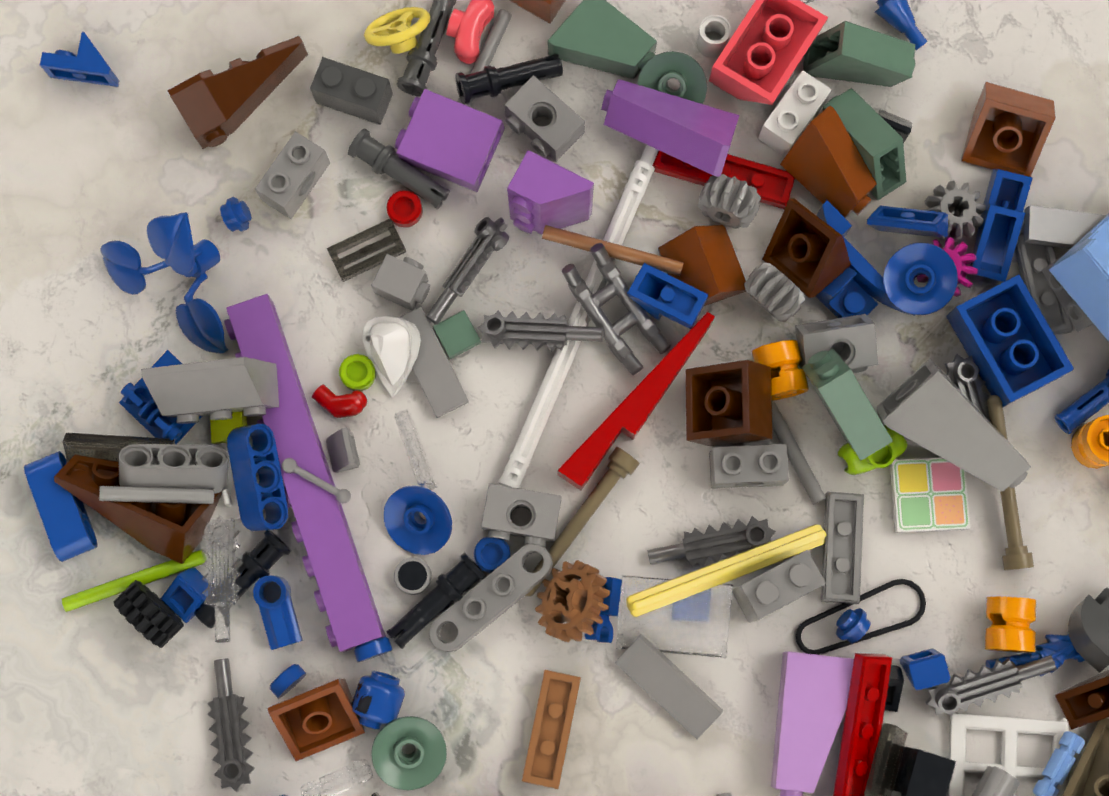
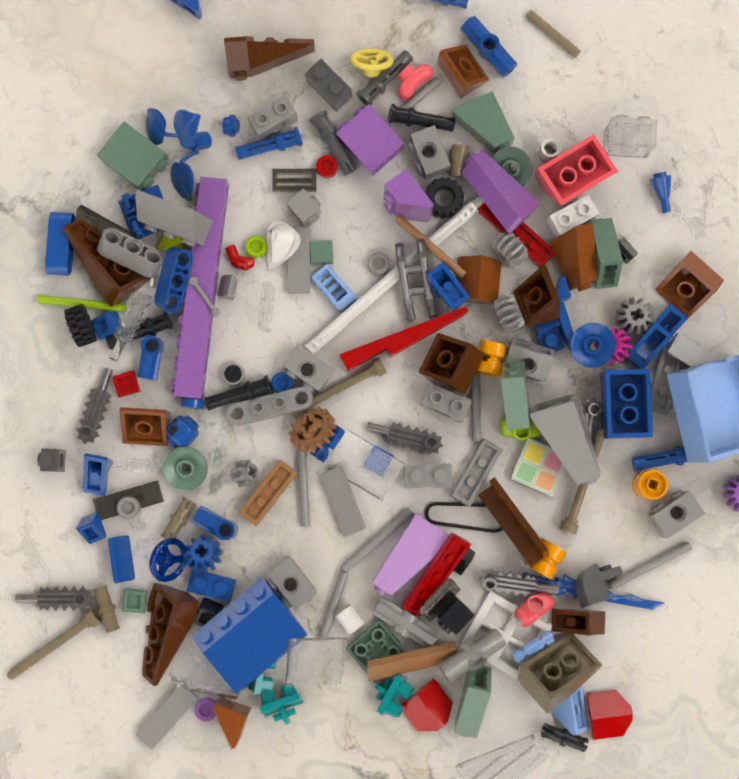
camera: 25 degrees right, 5 degrees up
(112, 326) = (133, 157): none -> sand green brick
(160, 495) = (114, 262): light grey bar -> none
(258, 668) = (126, 384): none -> red tile
(287, 680) = (139, 397): blue tile -> none
(316, 199) = (243, 151): none -> blue pin
(409, 528) = (243, 345): blue dish -> none
(489, 238) = (365, 206): flat silver piece -> none
(502, 717) = (244, 473): none -> light grey gear
(526, 391) = (344, 302): none -> light blue slope
(536, 331) = (365, 271): flat silver piece -> none
(548, 305) = (378, 264): none -> light grey tile
(587, 104) = (457, 157): none -> dark tan cone
(600, 696) = (303, 488): none -> light grey bar
(606, 154) = (454, 188): none -> black tyre
(725, 570) = (404, 453): light yellow axle -> none
(748, 721) = (377, 540): none -> light grey bar
(852, 625) = (459, 517): blue plate -> none
(860, 56) = (626, 202): sand green slope -> none
(909, 221) = (605, 309): blue slope -> none
(925, 668) = (487, 560): blue slope -> none
(939, 595) = (514, 524): none -> reddish brown fence
(1031, 707) = (534, 608): none -> coral piece

